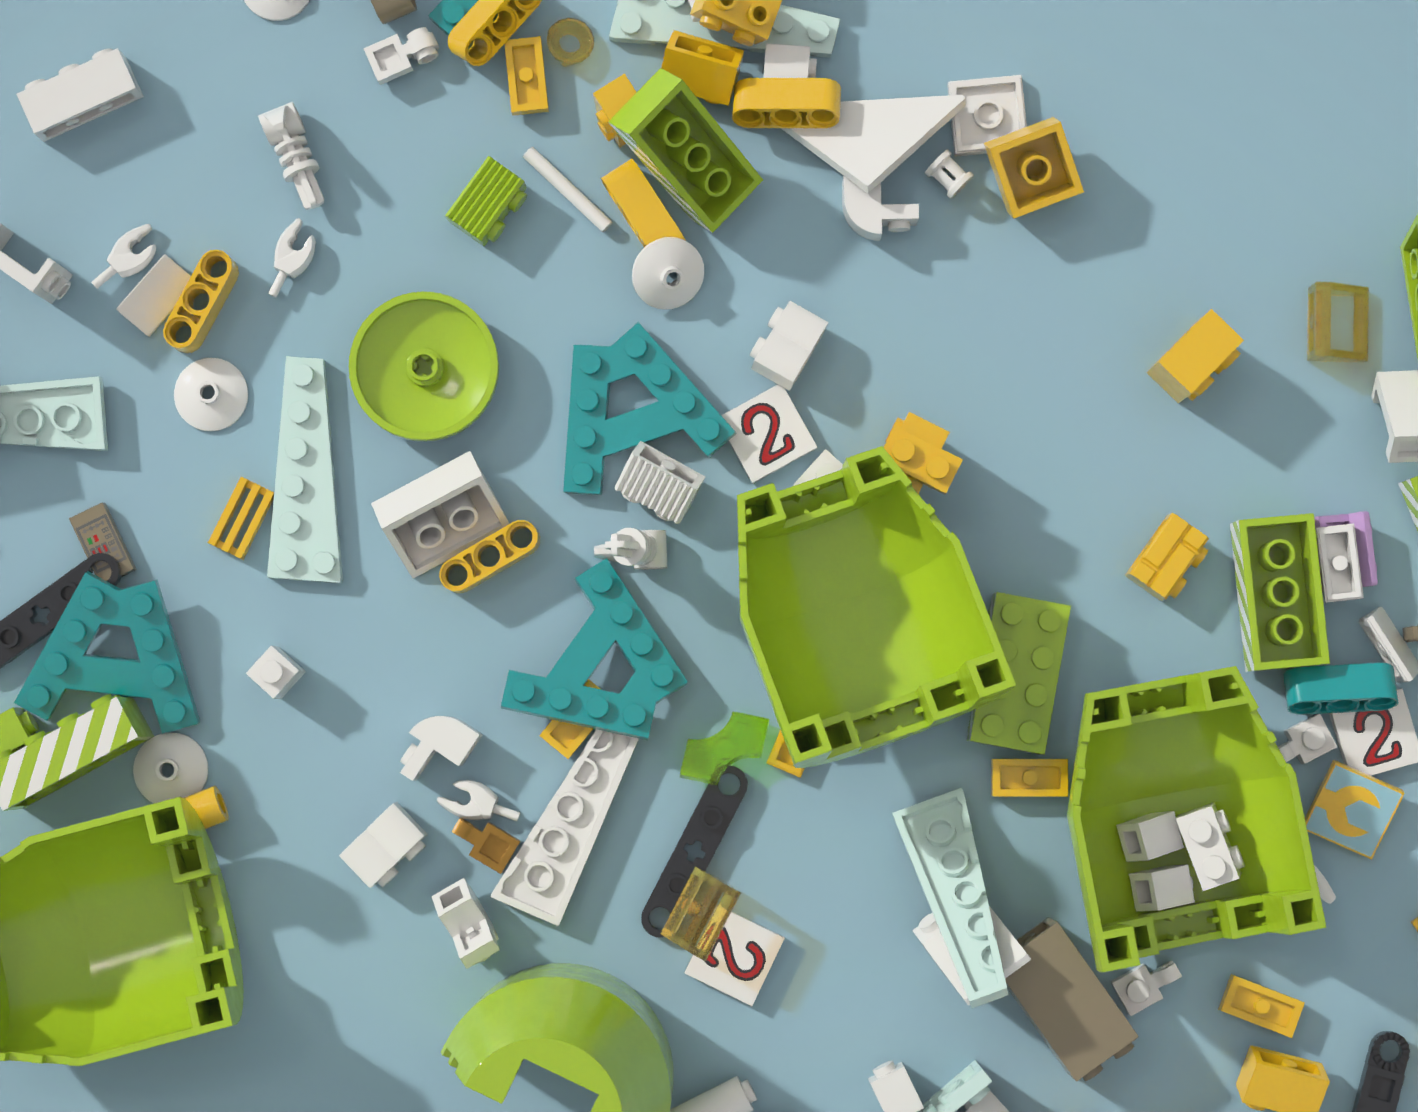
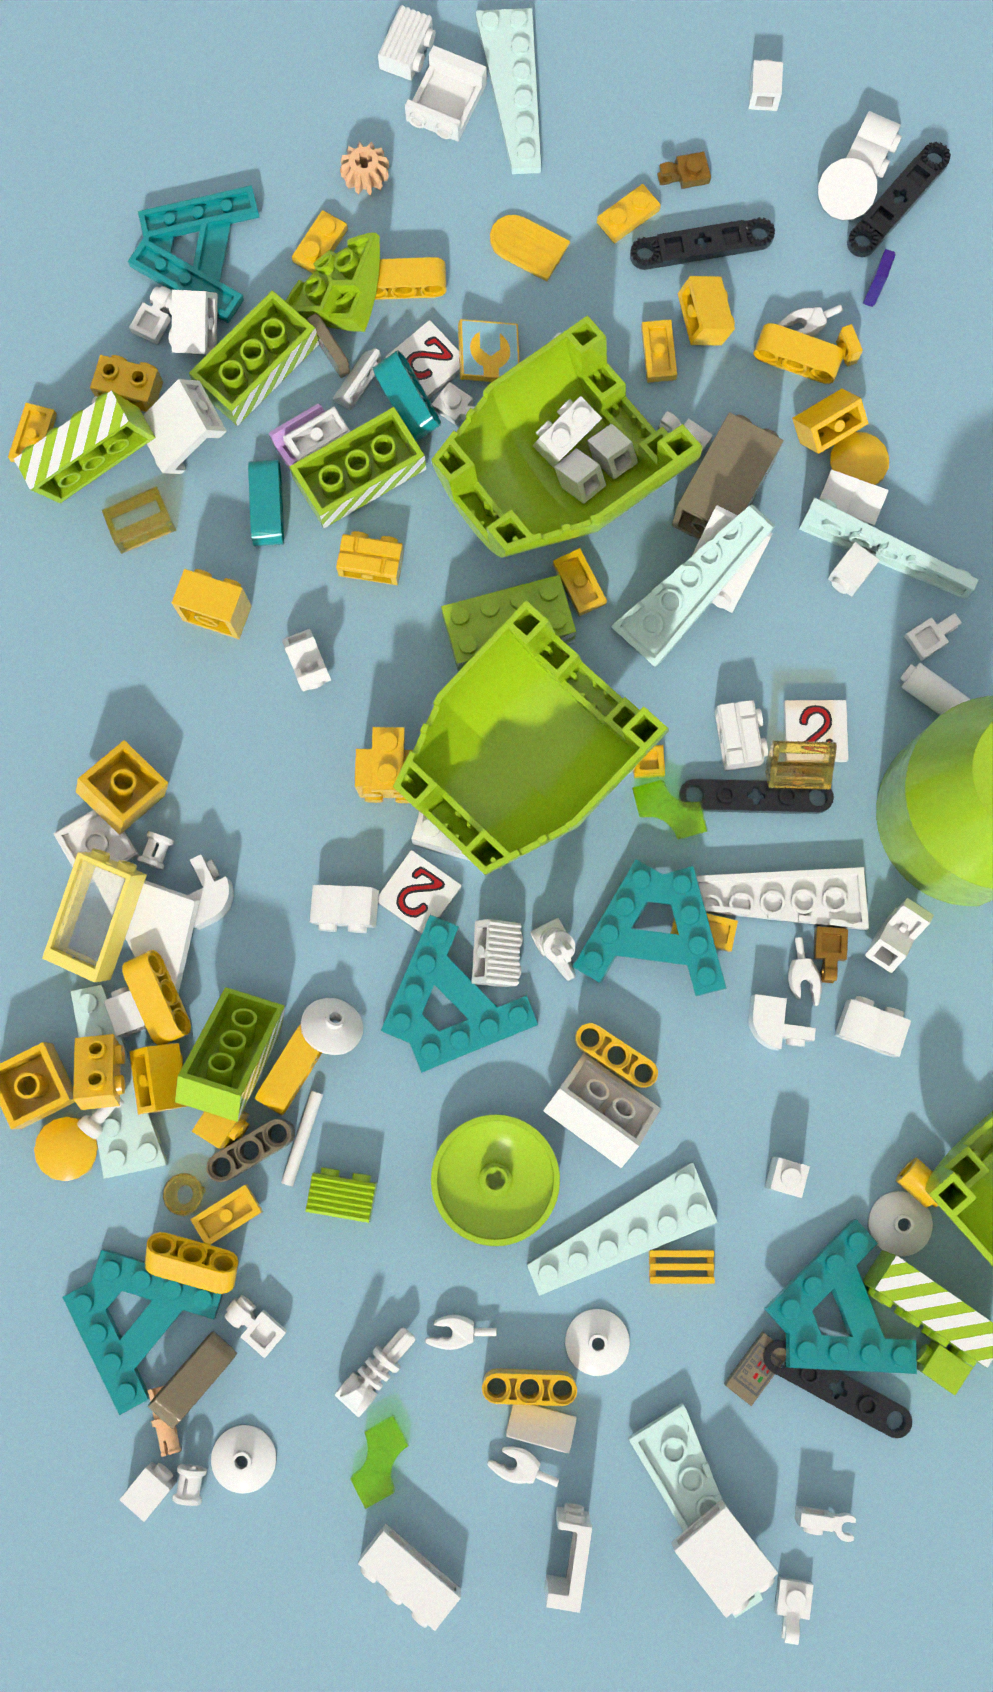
camera: 120 degrees left, 5 degrees down
(190, 104) = (374, 1478): none -> clear neon green tile
(577, 113) = (235, 1152): none -> dark tan beam
(769, 867) = (740, 735): none -> white brick
(905, 76) = (94, 915): none -> window
(1082, 431) = (306, 660): none -> white brick
(1289, 472) = (266, 502): none -> teal beam

